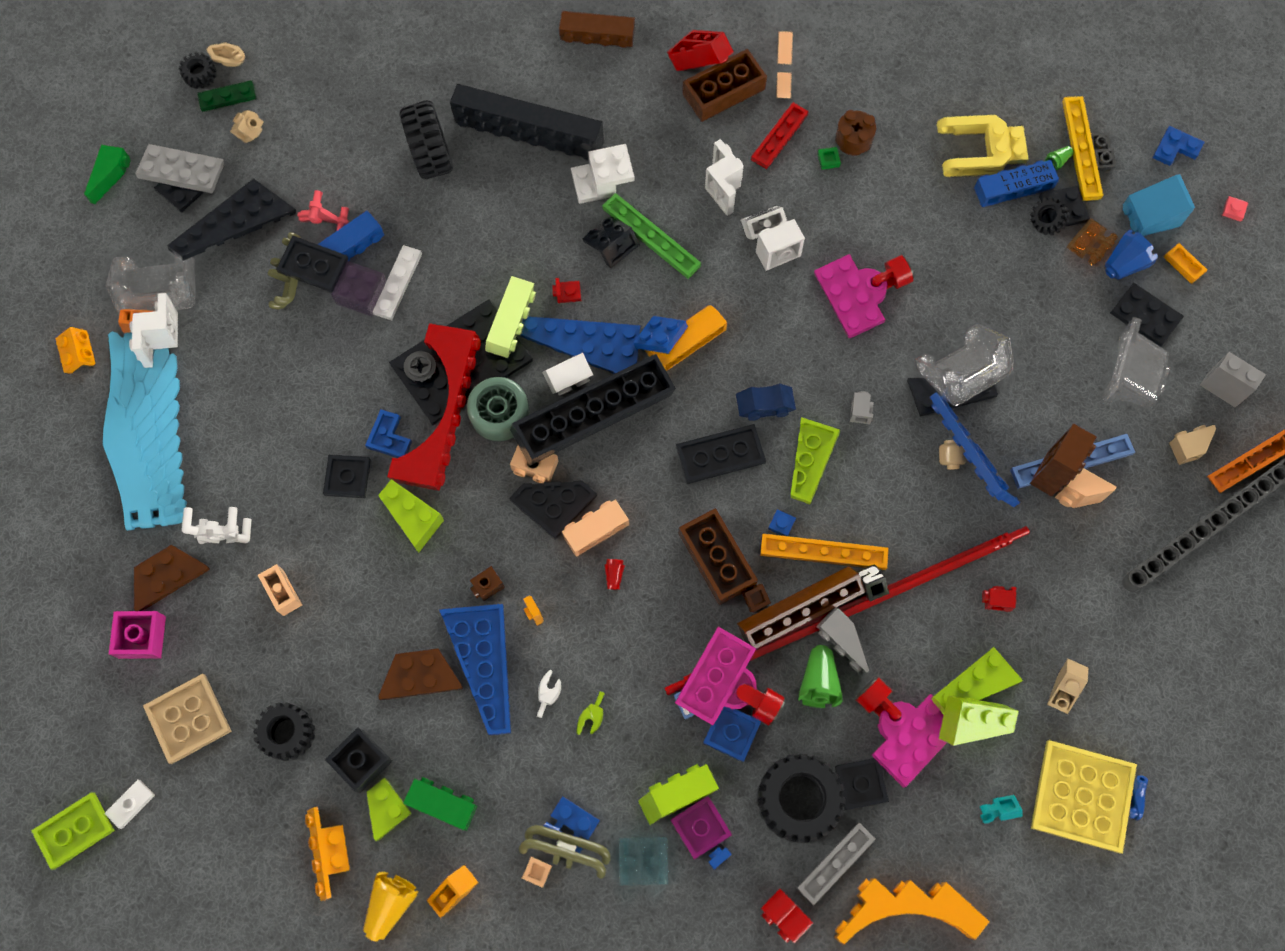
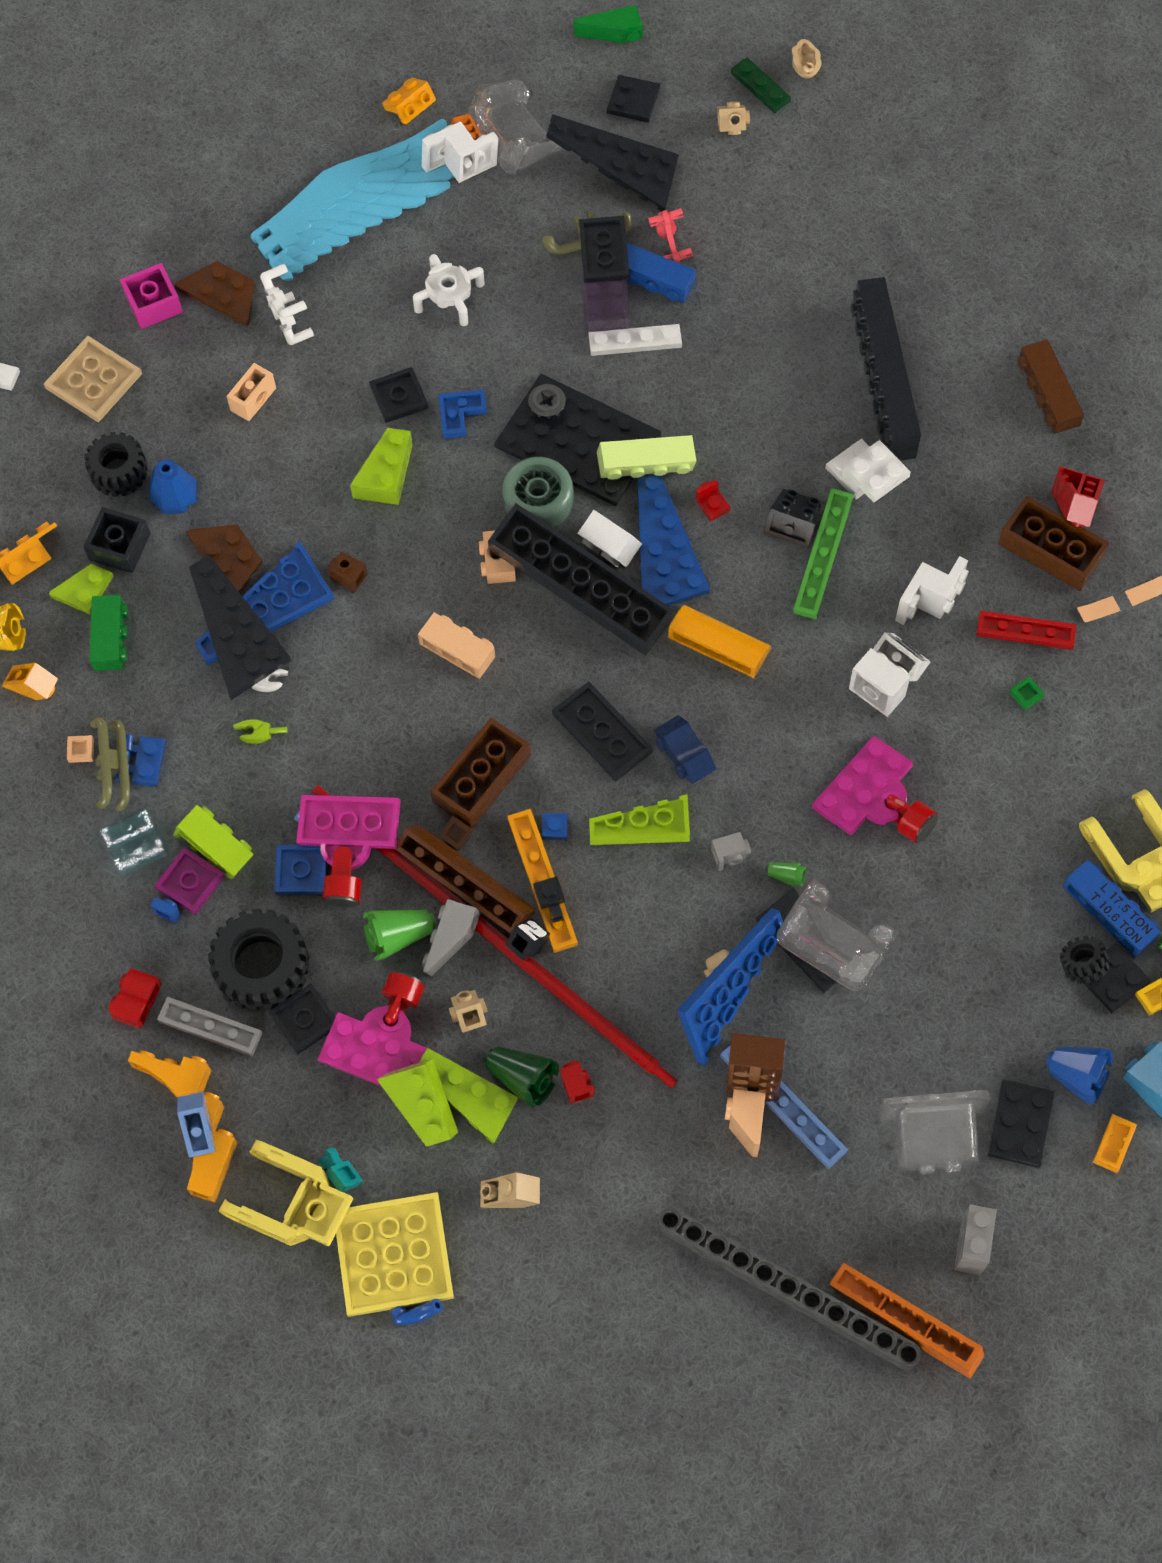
camera: 65 degrees right, 5 degrees down
(180, 168) = (651, 85): light grey plate -> none
(193, 62) = (773, 34): black tyre -> none
(275, 404) = (449, 296): none -> white plate
(333, 694) = (172, 488): none -> blue cone
(426, 139) = (800, 280): black tyre -> none
(427, 463) = (448, 458): red arch -> none
(505, 695) = (240, 638): none -> black wing
(532, 610) = (337, 623): light orange plate -> none
(553, 503) = (464, 594): black plate -> none
(614, 571) = (417, 685): red cone -> none
(660, 334) = (705, 610): blue plate -> none
(843, 550) = (550, 896): none -> black plate
(855, 132) = (1074, 706): reddish brown brick -> none
(896, 376) = (788, 873): none -> bright green cone
(912, 652) = (468, 1010): none -> tan brick
(927, 908) = (195, 1124): none -> medium blue slope
(978, 635) = (523, 1073): none -> dark green cone
(1031, 842) = (313, 1211): none -> light yellow plate
(1087, 237) = (1086, 1019): clear orange plate -> none
(1192, 445) = (873, 1231): tan slope -> none

